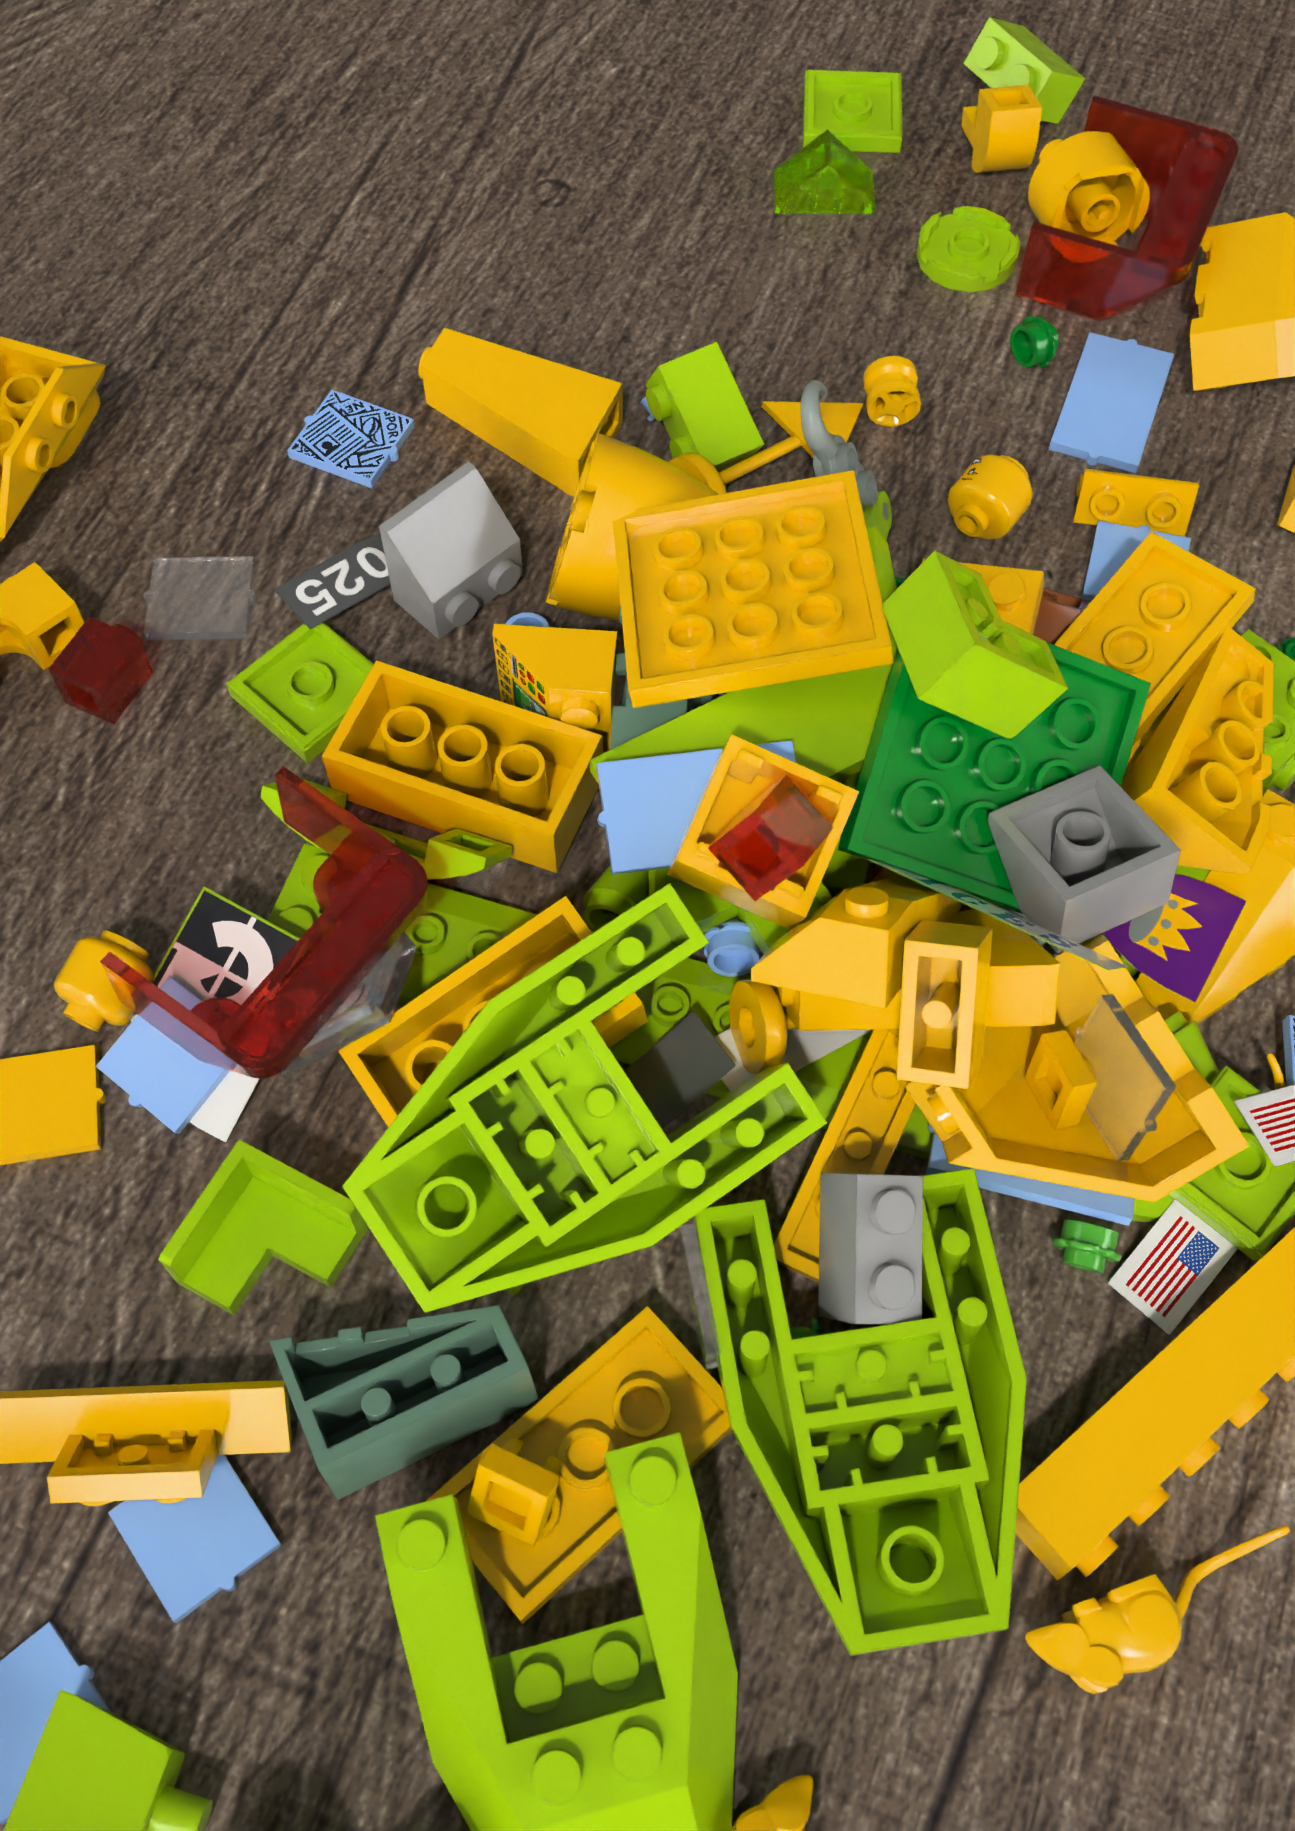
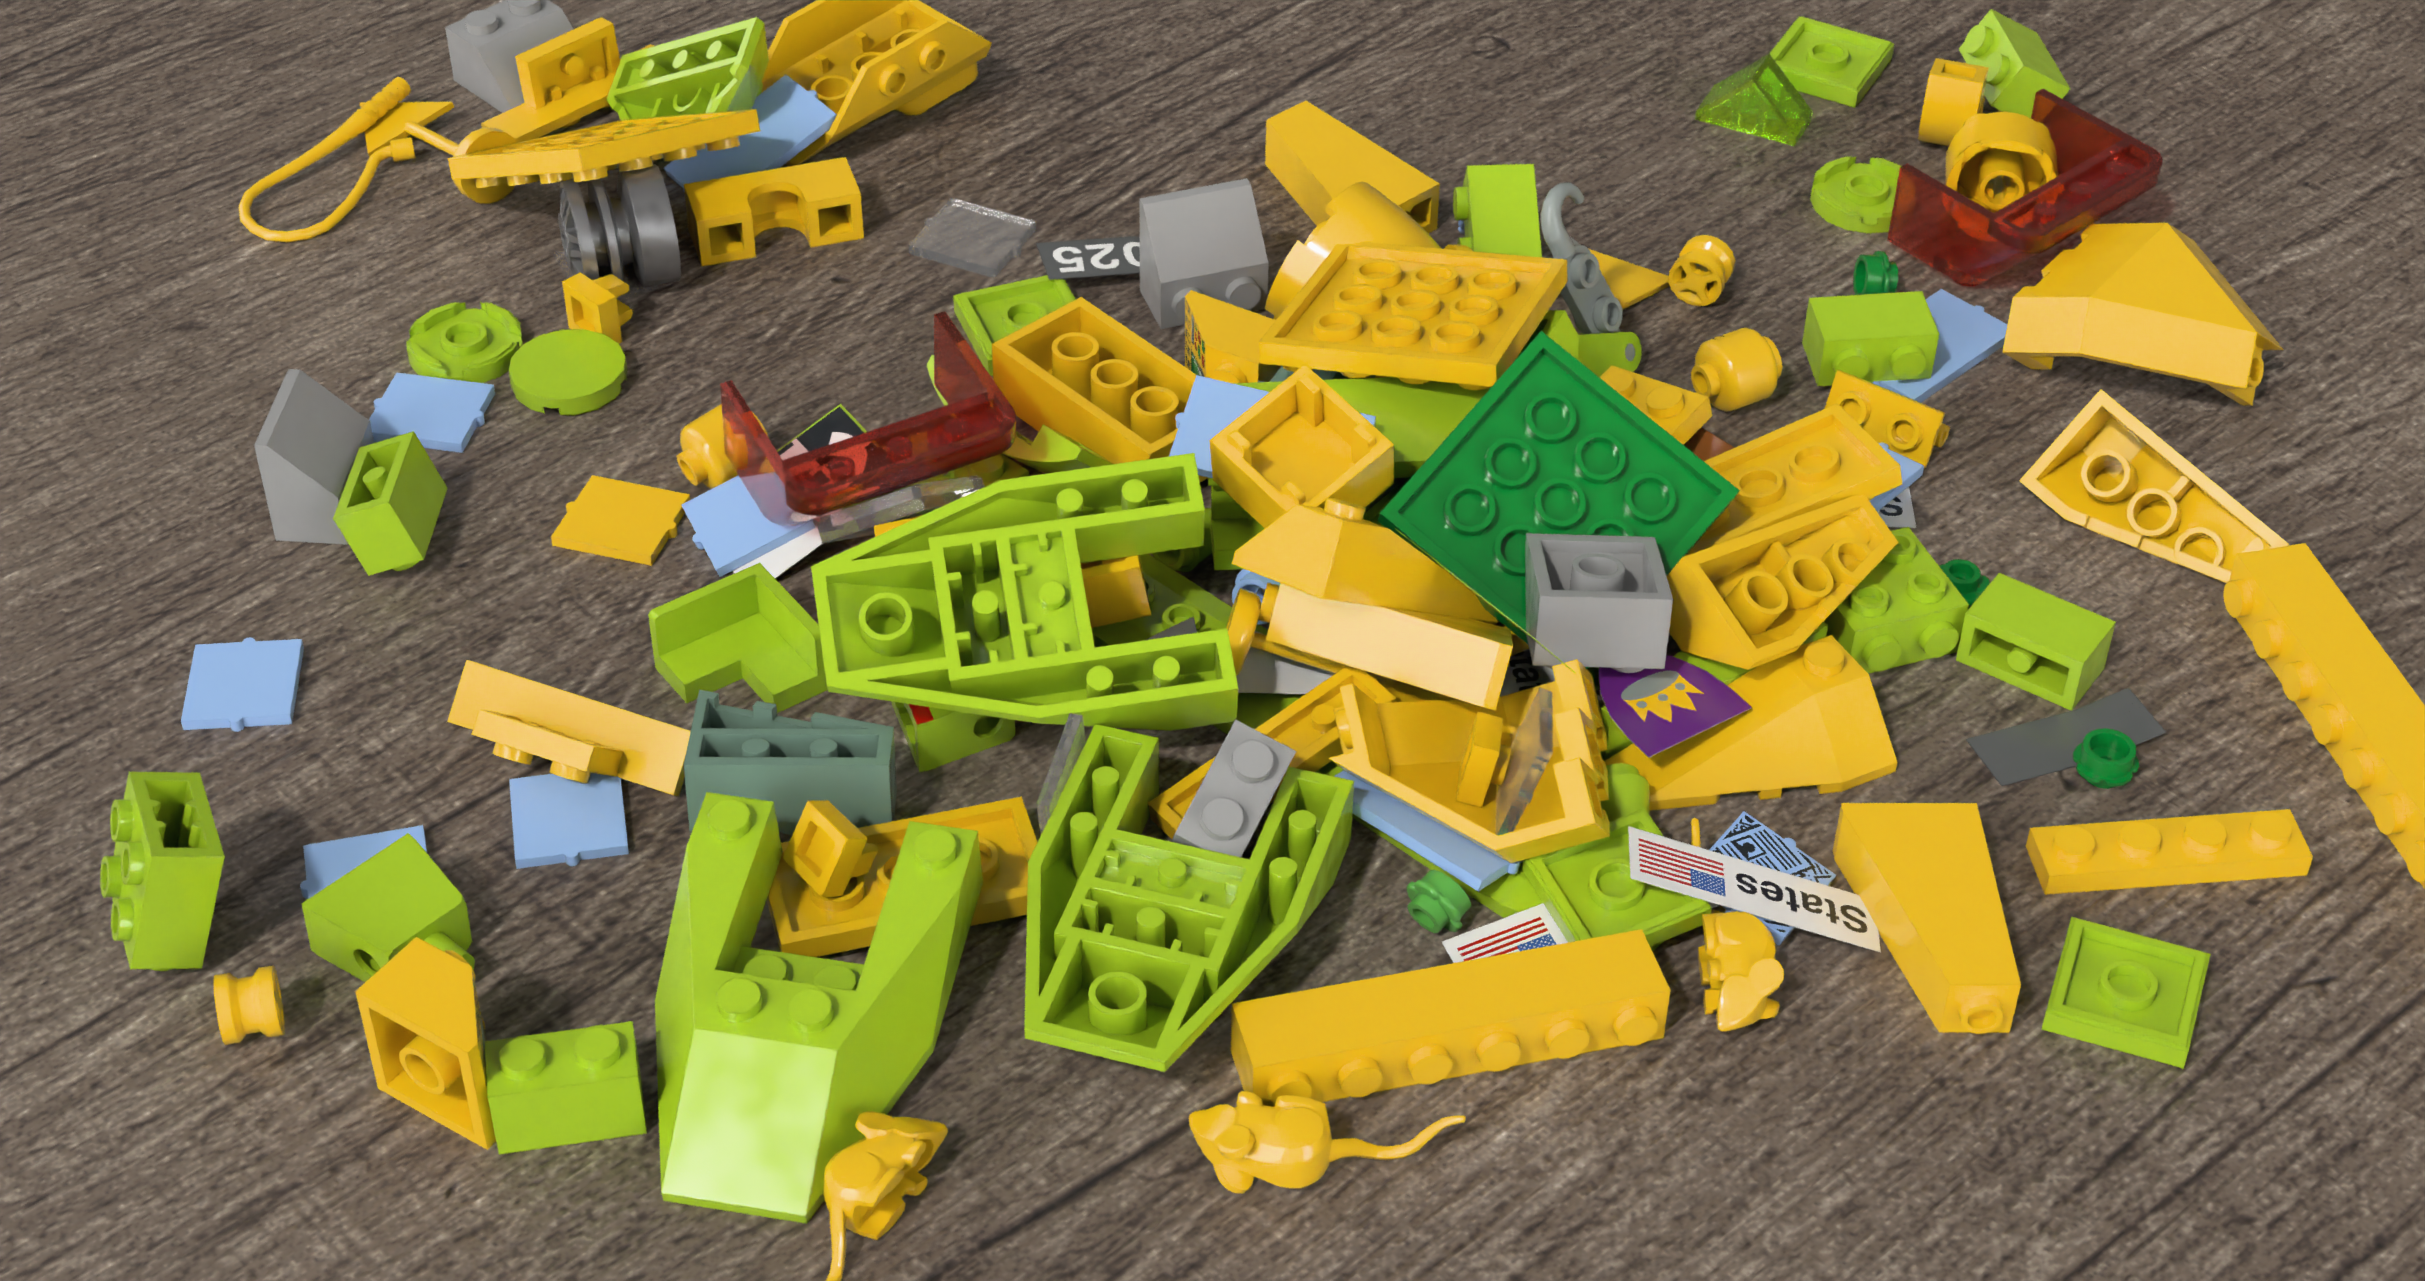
camera: 25 degrees right, 20 degrees down
(102, 669) = (855, 252): clear red brick -> none
(351, 438) = (1178, 164): light blue piece -> none
(771, 838) = (1294, 443): clear red brick -> none
(944, 1003) = (1382, 622): yellow brick -> none
(965, 653) = (1557, 392): lime panel -> none
(1081, 418) = (1870, 337): none -> lime brick

